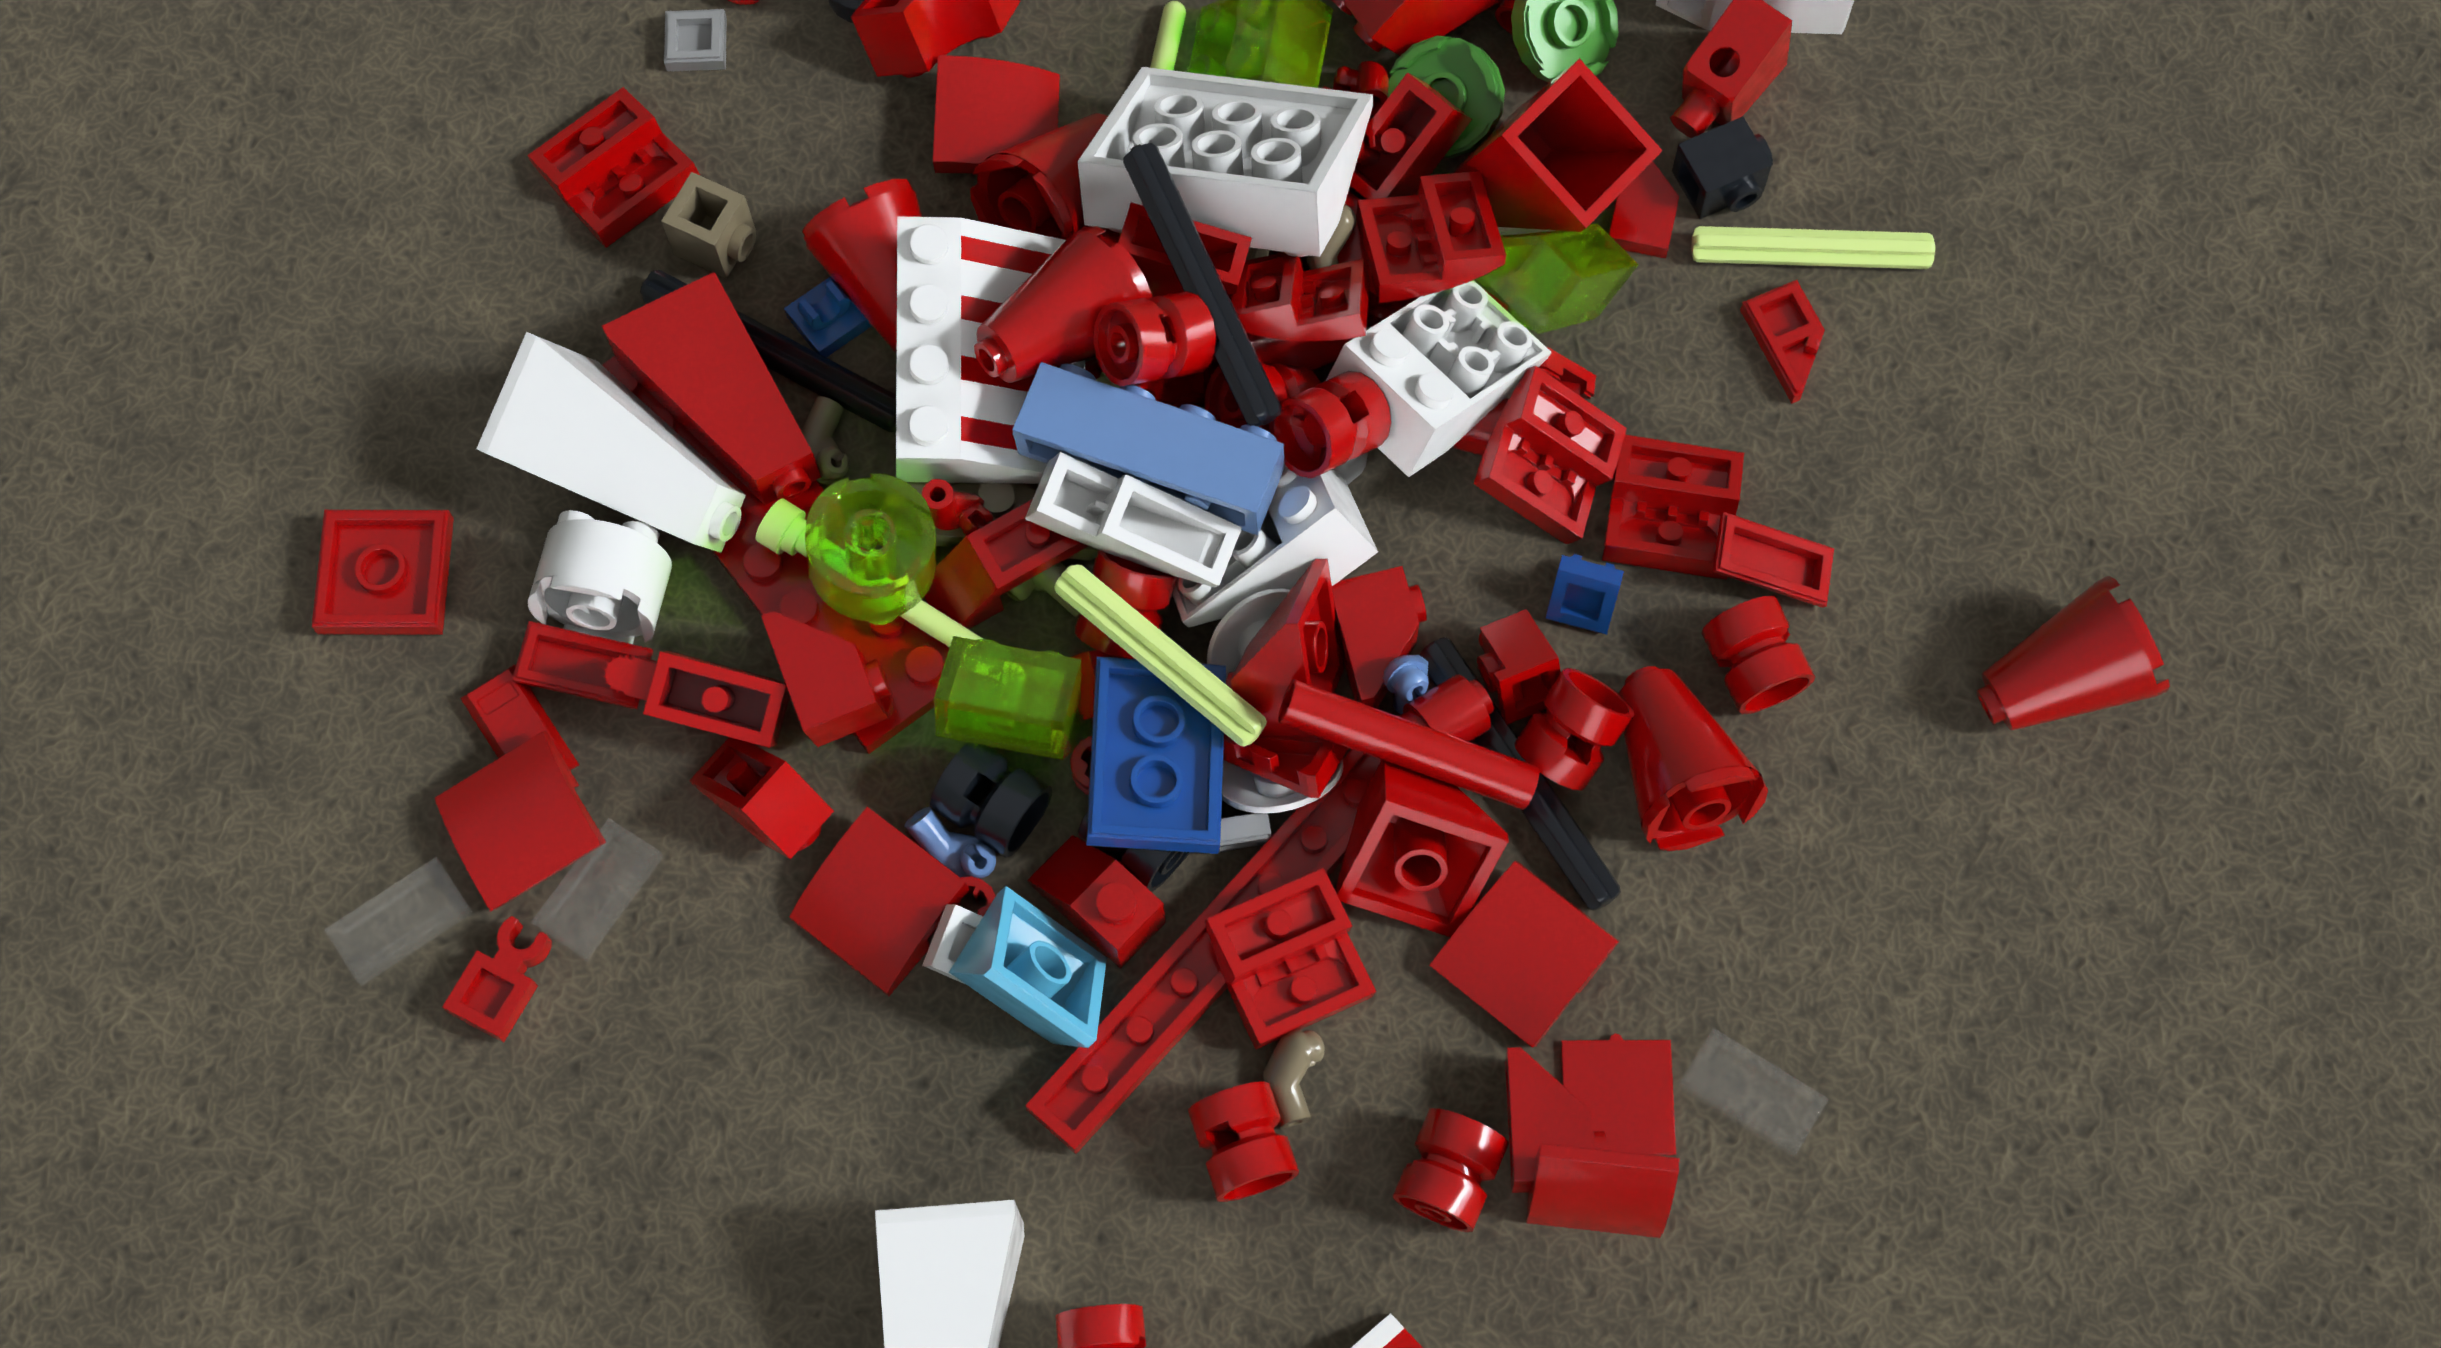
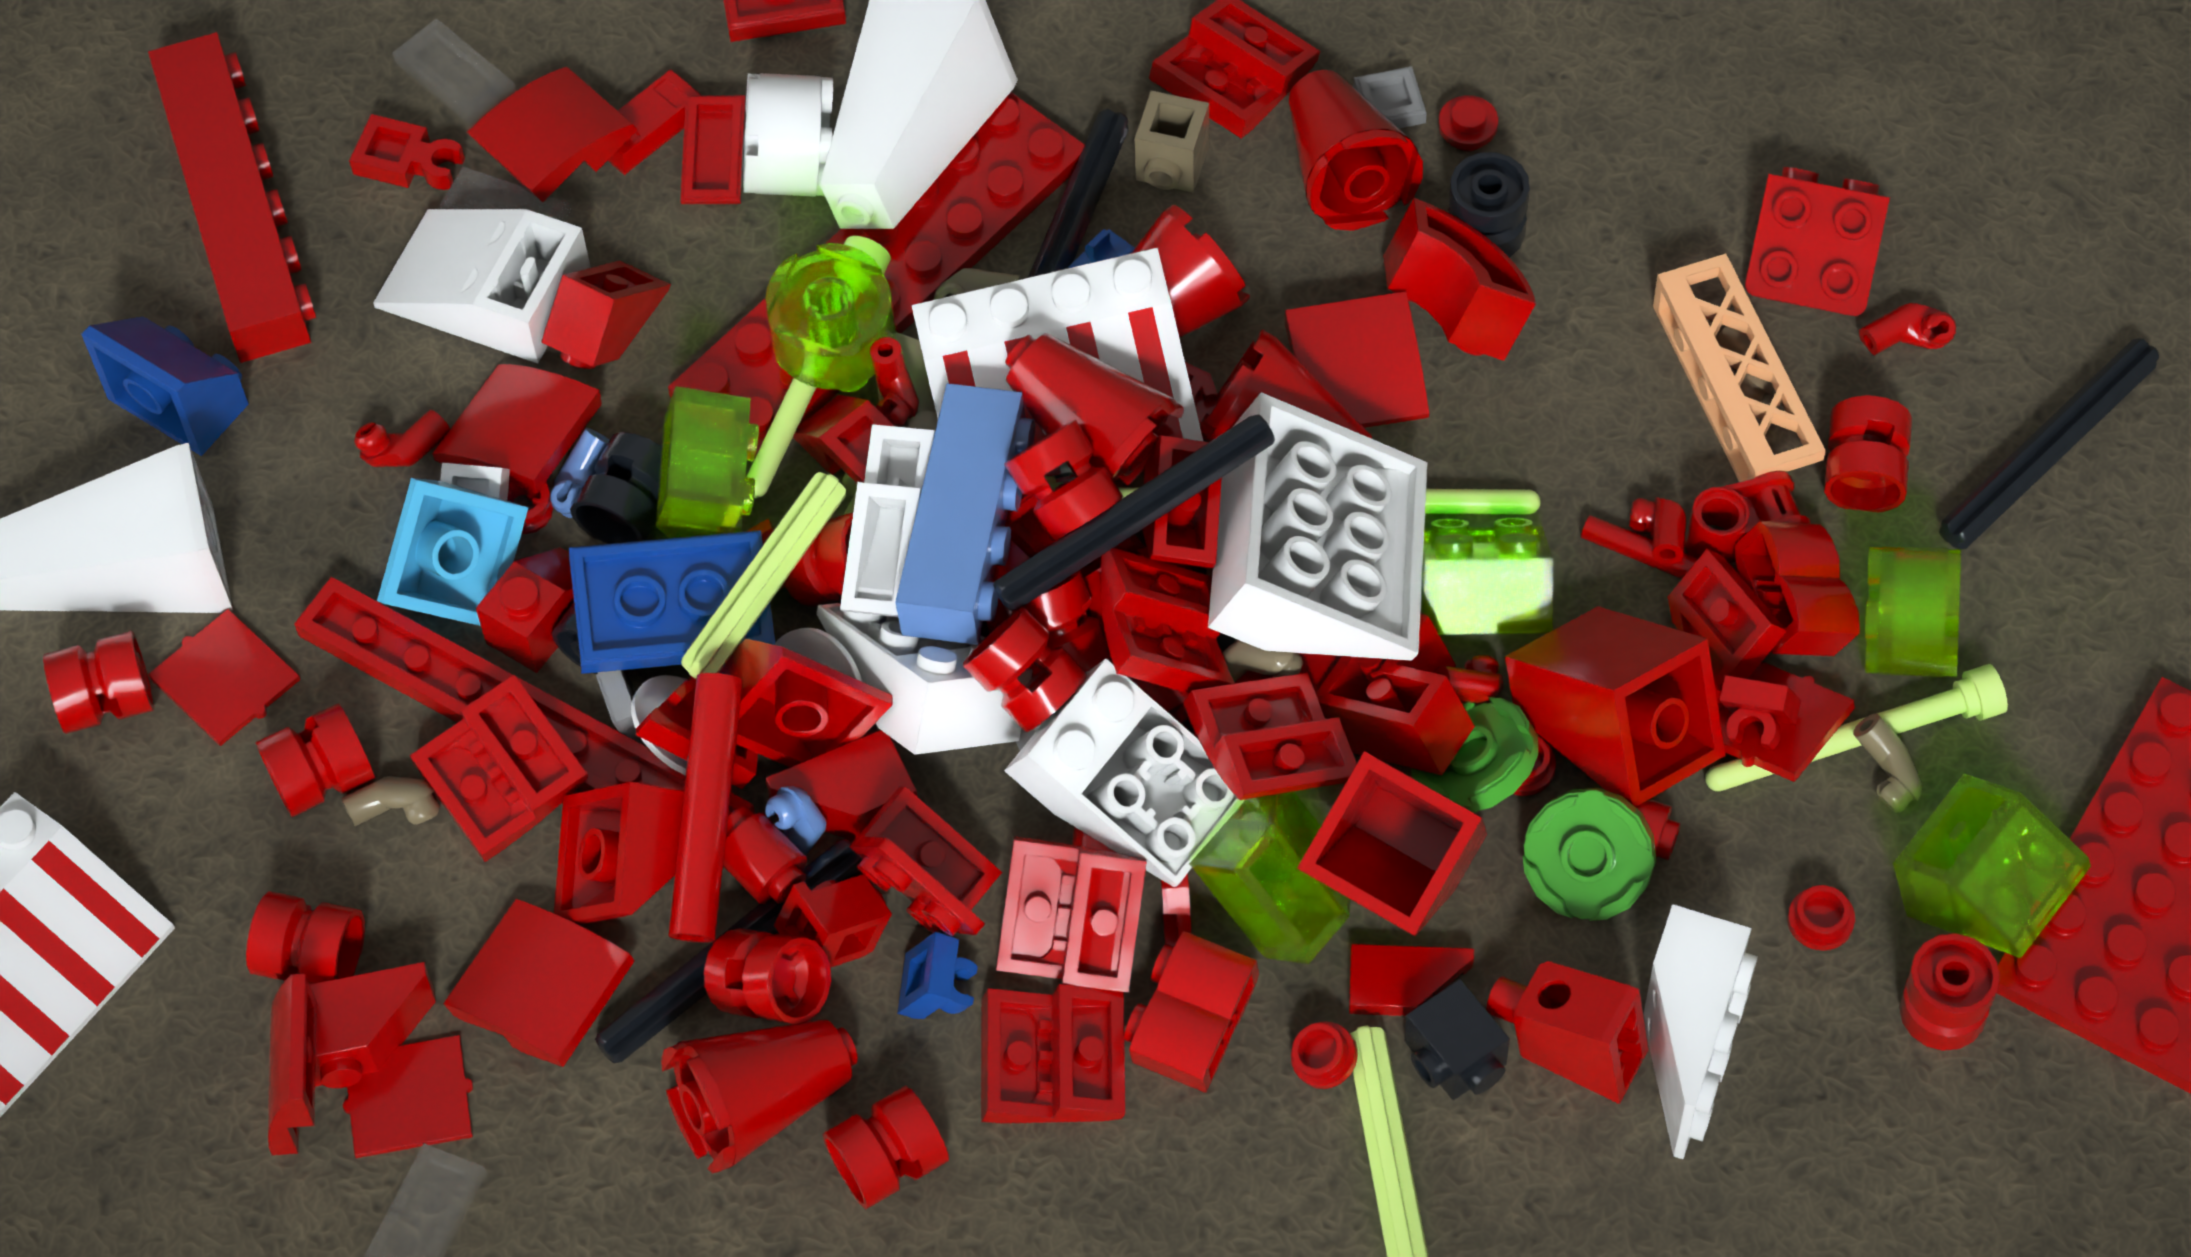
camera: 80 degrees right, 10 degrees down
(503, 1170) = (229, 197): none -> red brick
(686, 910) = (485, 275): none -> white slope
(703, 695) = (686, 241): red hinge -> none
(712, 379) = (994, 179): red slope -> none
(740, 1253) = (166, 380): none -> blue slope
(754, 75) = (1350, 153): none -> red cone
(827, 680) = (712, 322): red slope -> none
(871, 1024) = (400, 449): none -> red arm
(1106, 1237) = (224, 677): none -> red piece
(1481, 566) = (926, 862): none -> red bracket
(1659, 374) = (1192, 1010): none -> red brick
(1713, 279) = (1324, 1055): none -> red plate
(1773, 560) = (997, 1150): red tile -> none
(1786, 333) = (1277, 1143): red tile -> none

